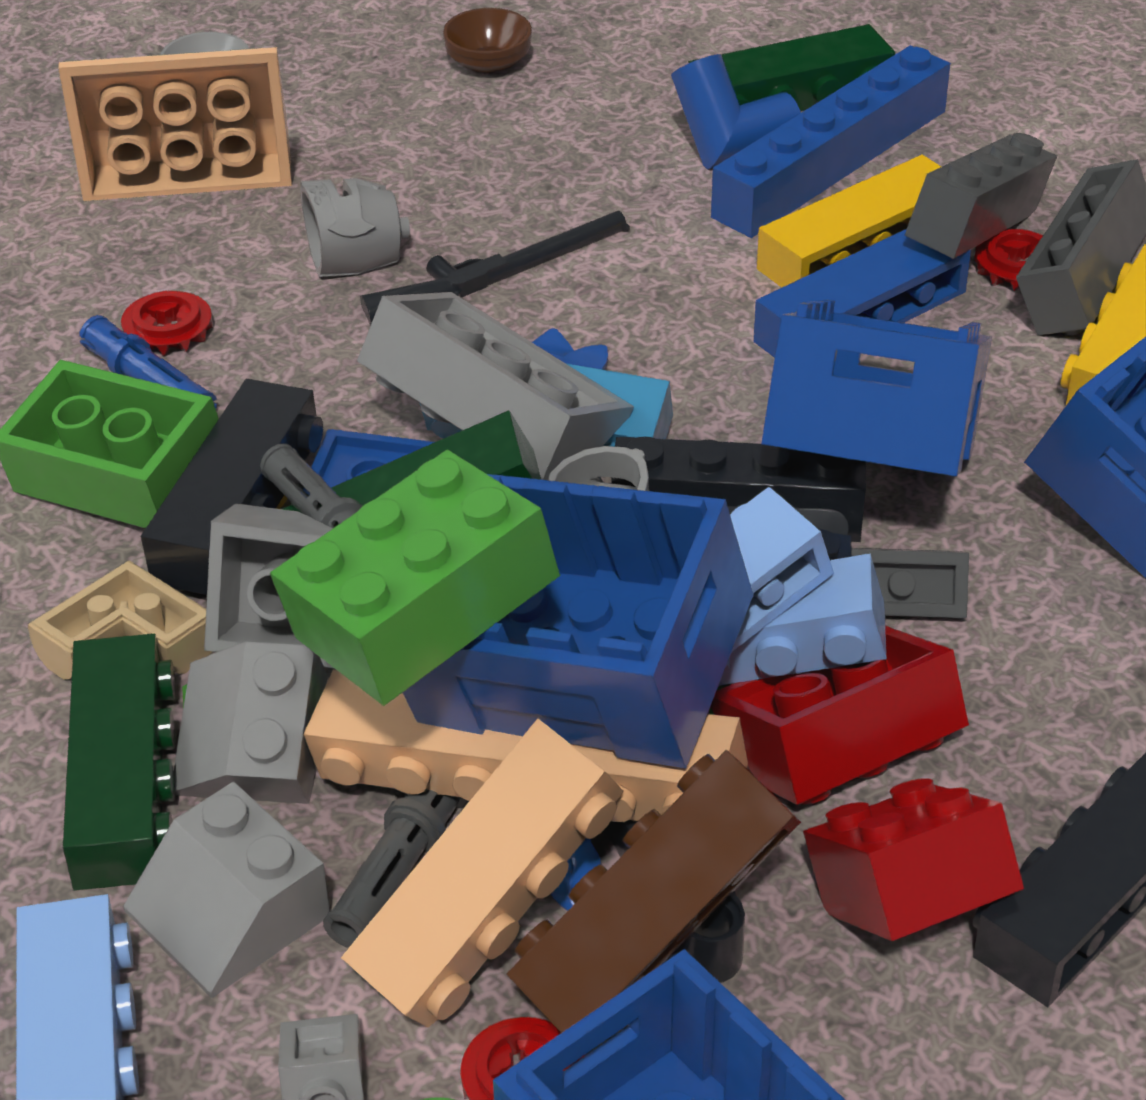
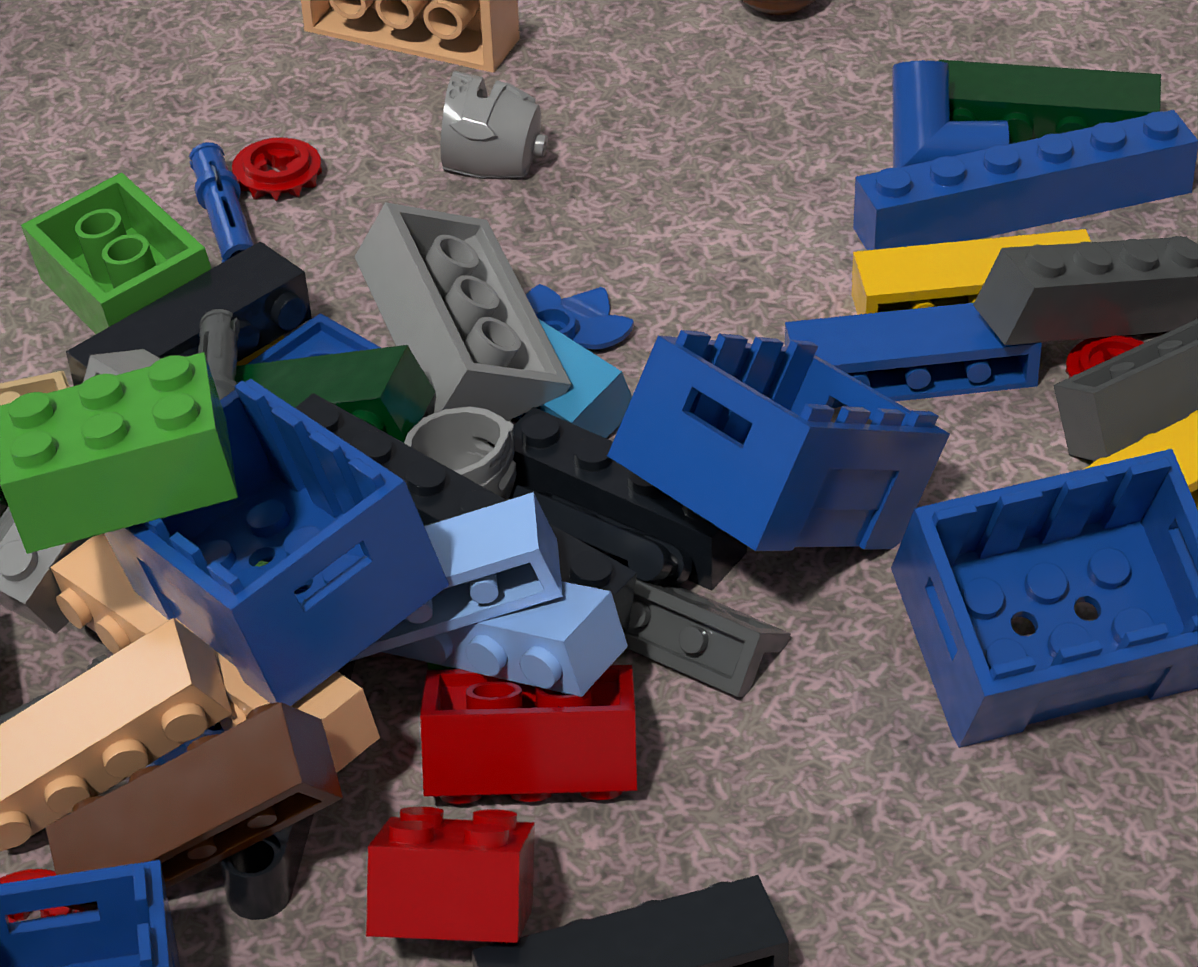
camera: 30 degrees right, 0 degrees up
(479, 273) = (586, 211): black piece -> none

